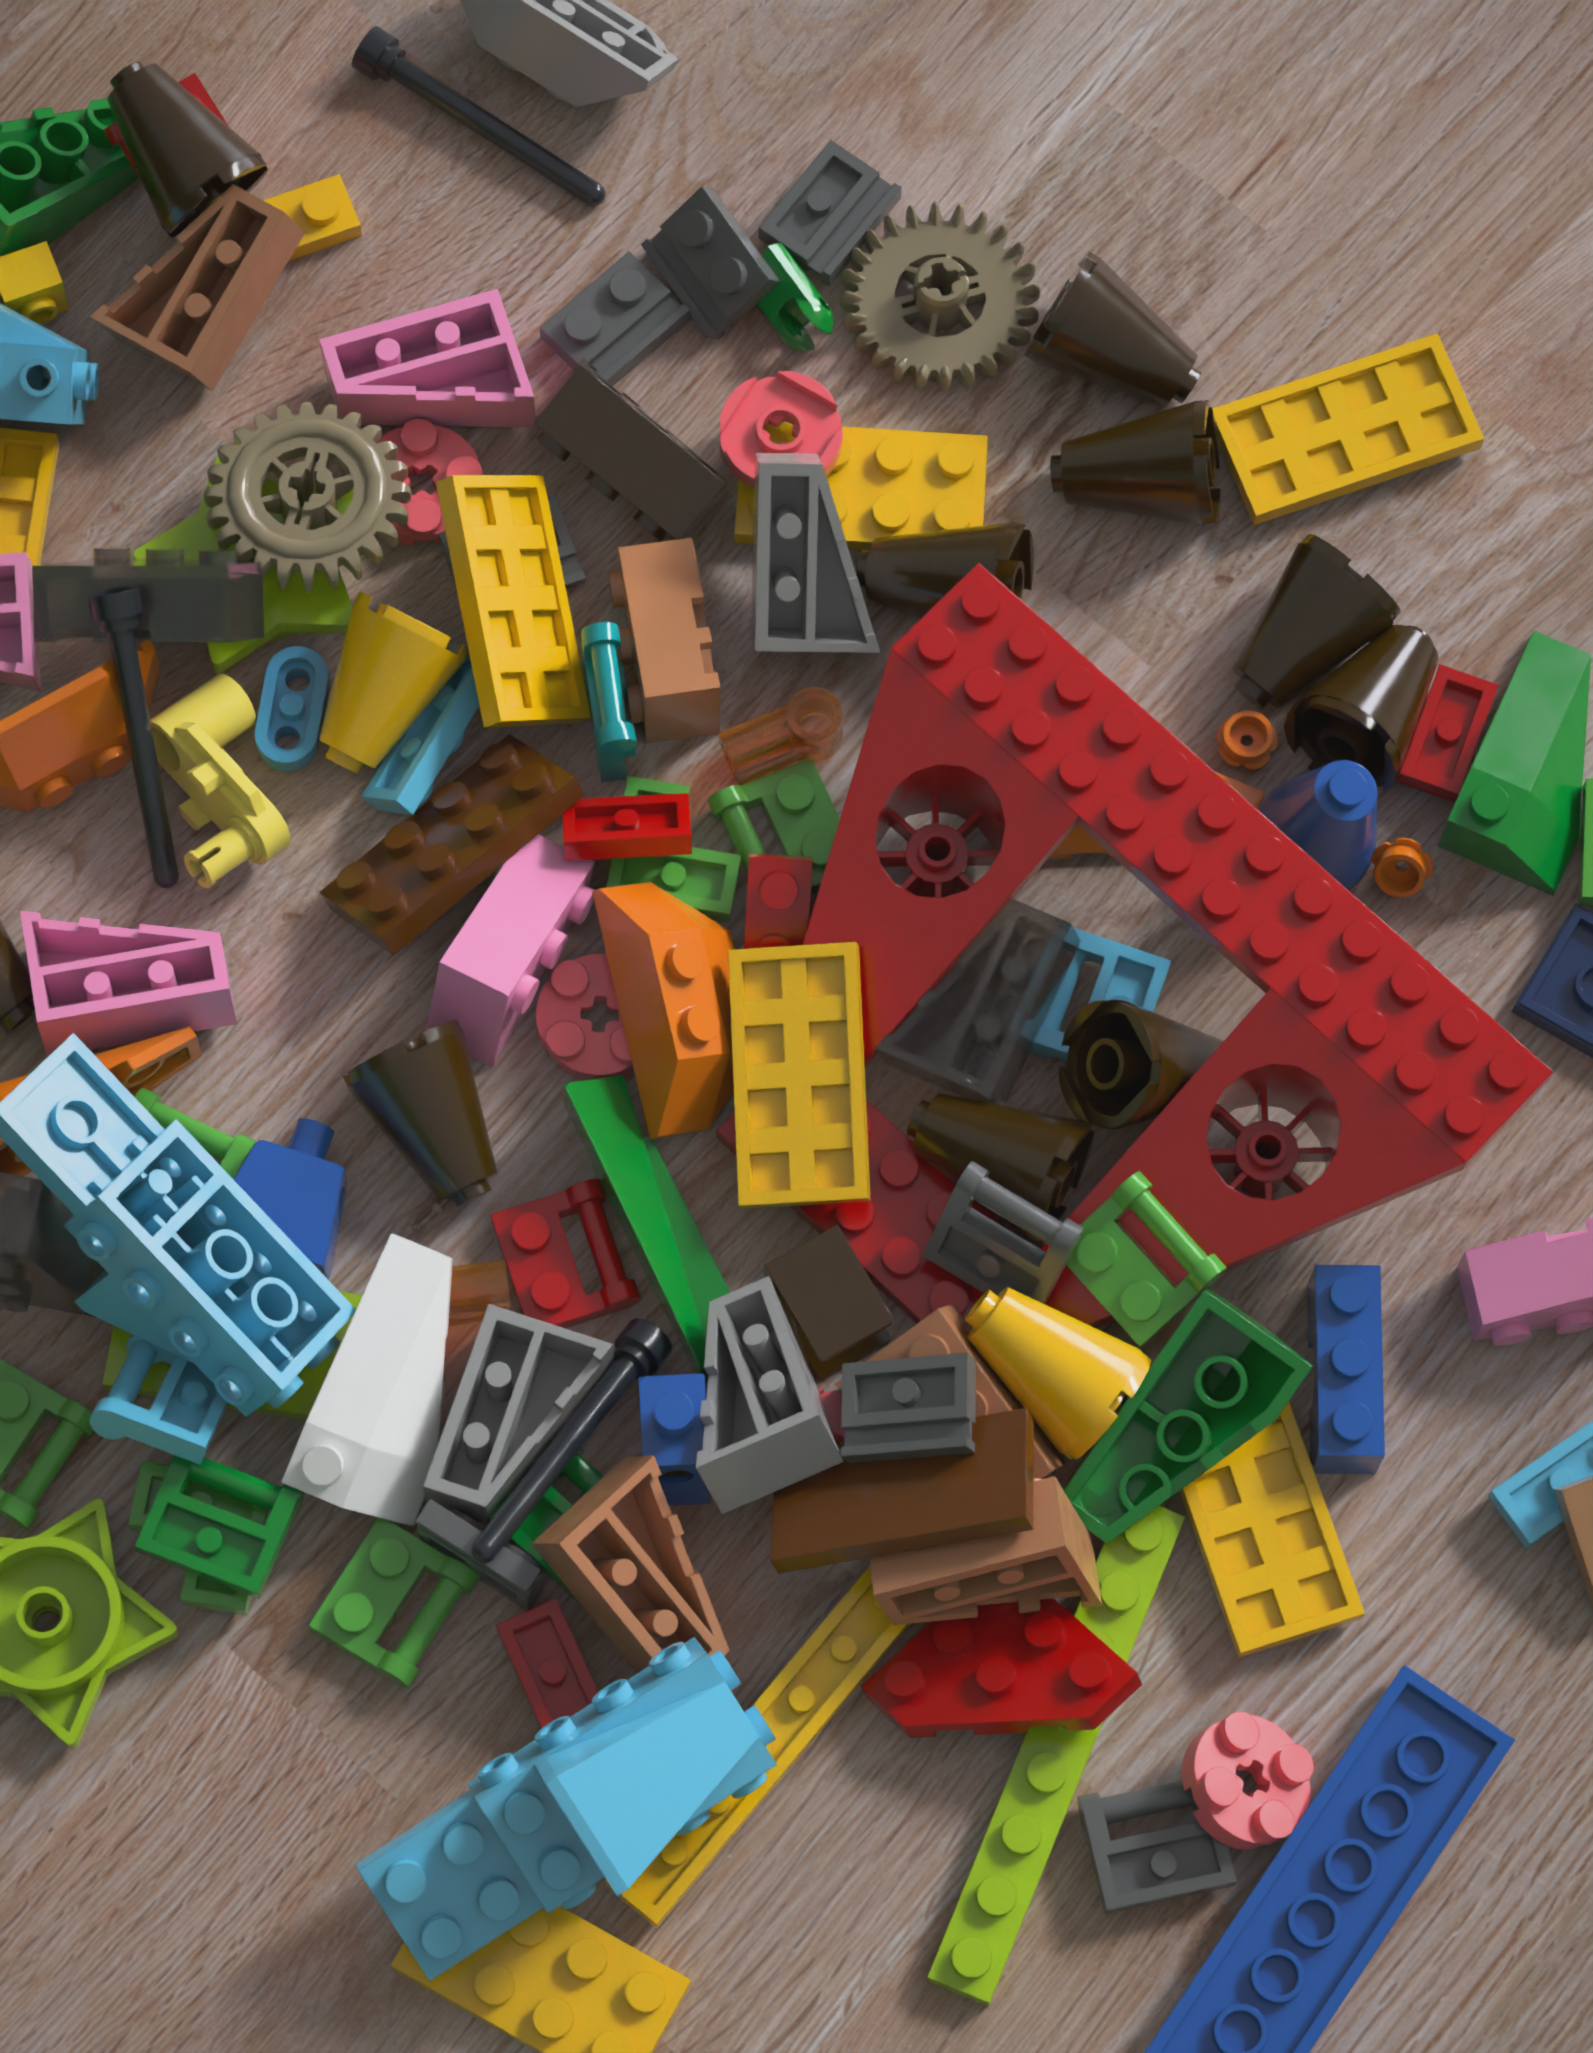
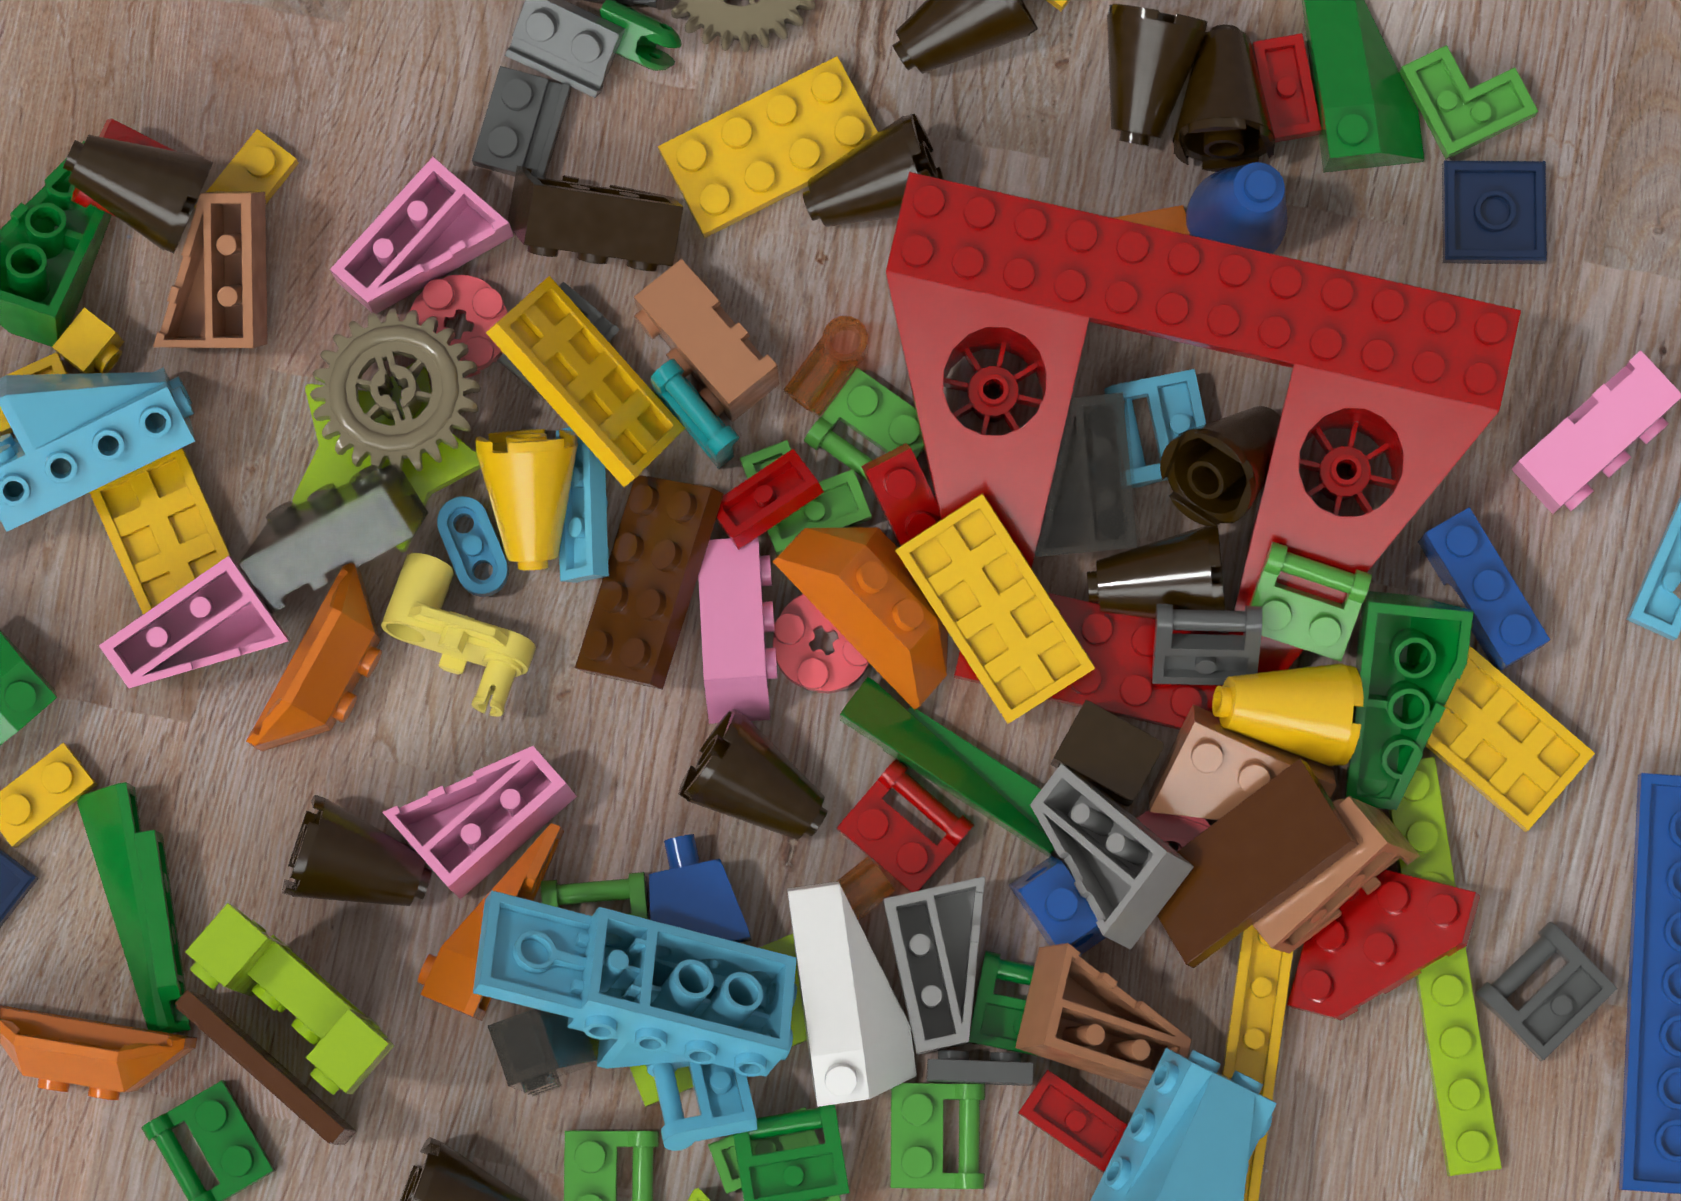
camera: 25 degrees left, 10 degrees up
(117, 615) = (322, 563): black piece -> none
(382, 58) = (234, 22): black piece -> none
(638, 1352) = (997, 863): black piece -> none
(771, 402) = (717, 123): coral plate -> none
(801, 563) = (772, 236): light grey wedge -> none
(908, 1407) = (1218, 804): dark grey plate -> none
(1251, 725) = (1153, 162): orange plate -> none
(1275, 1763) = (1603, 898): coral plate -> none
(1397, 880) = (1311, 206): orange plate -> none

